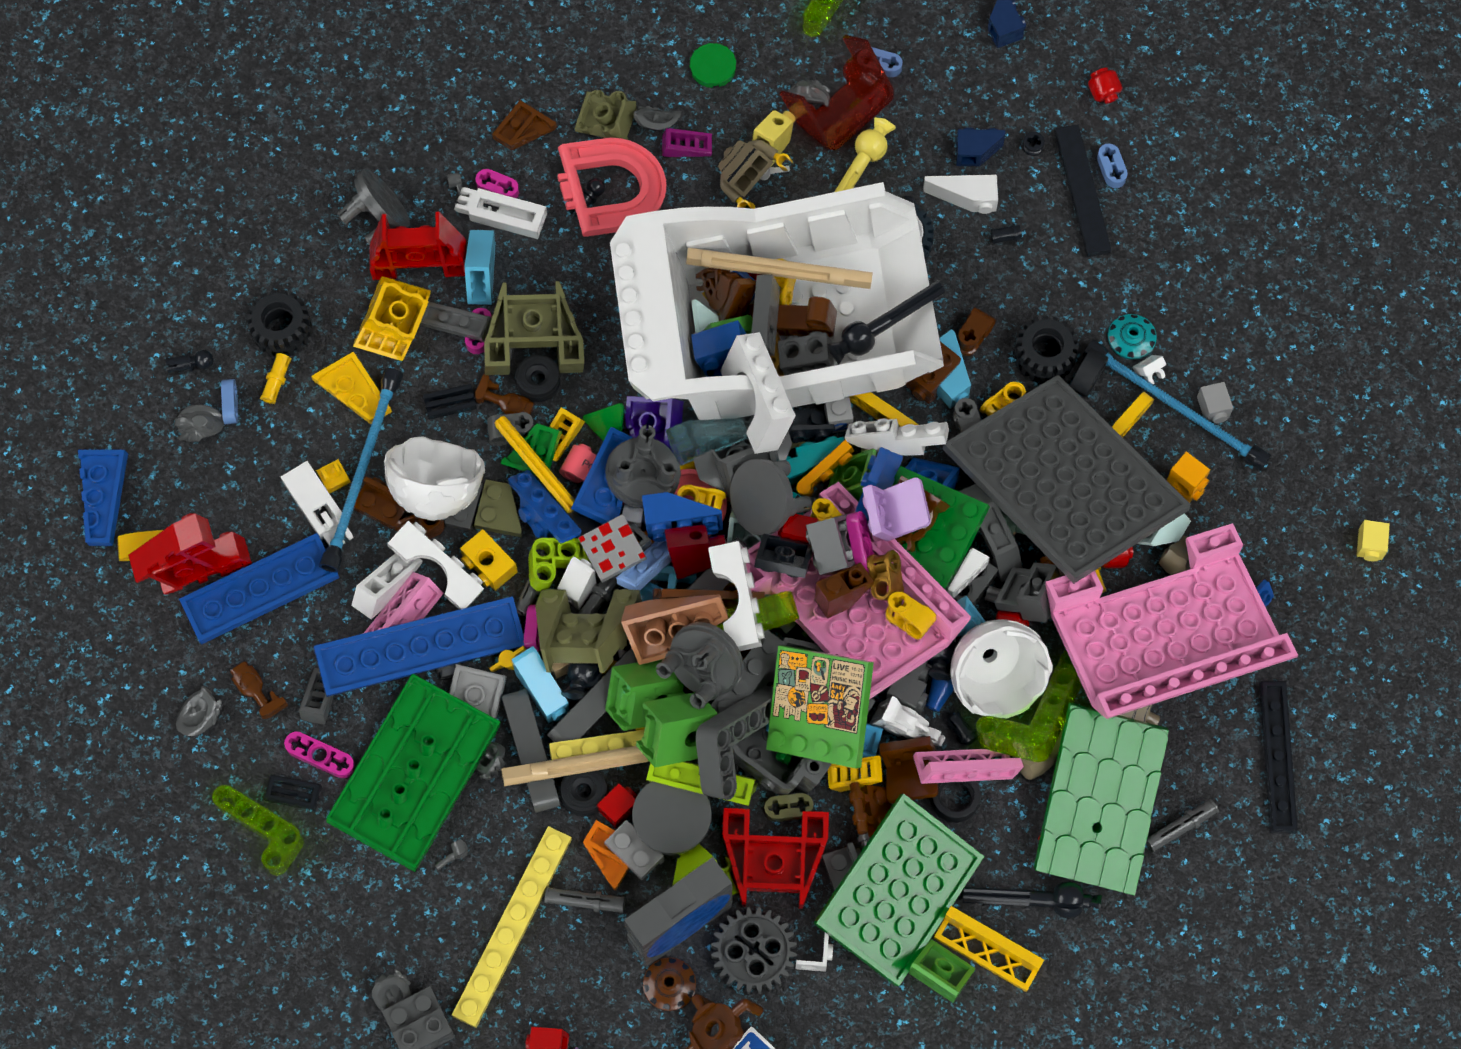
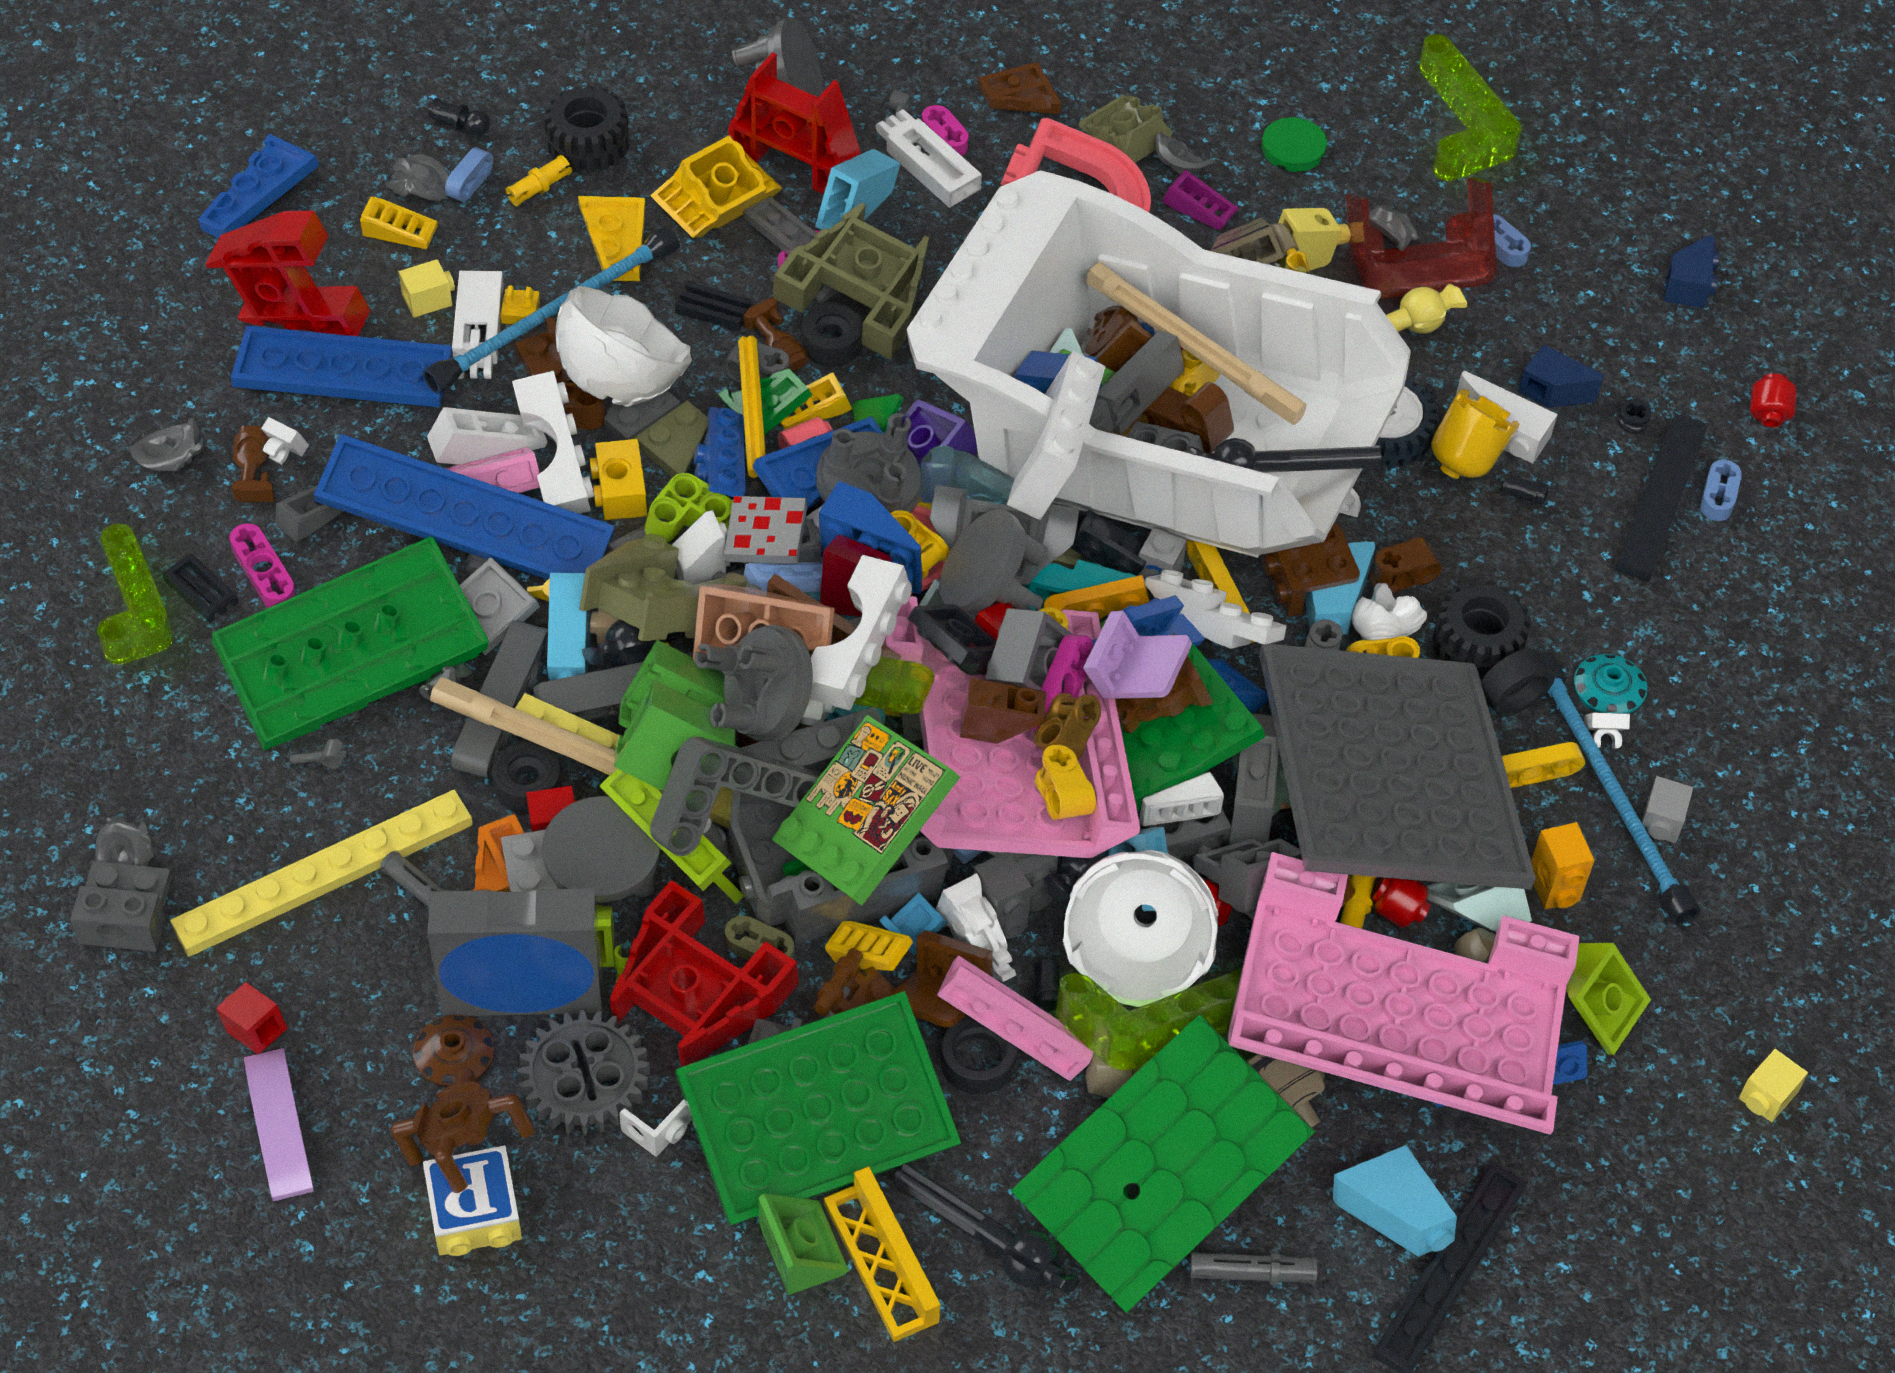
camera: 30 degrees right, 15 degrees down
(207, 475) = (380, 212): none -> yellow slope
(265, 664) = (282, 441): none -> white tile
(268, 500) = (426, 288): none -> light yellow brick
(939, 693) = (1047, 927): blue cone -> none
(960, 220) = (1472, 436): none -> yellow cylinder
(988, 375) = (1386, 617): none -> white hair
(1232, 738) = (1397, 1201): none -> medium azure slope
(1258, 541) = (1606, 993): none -> lime slope

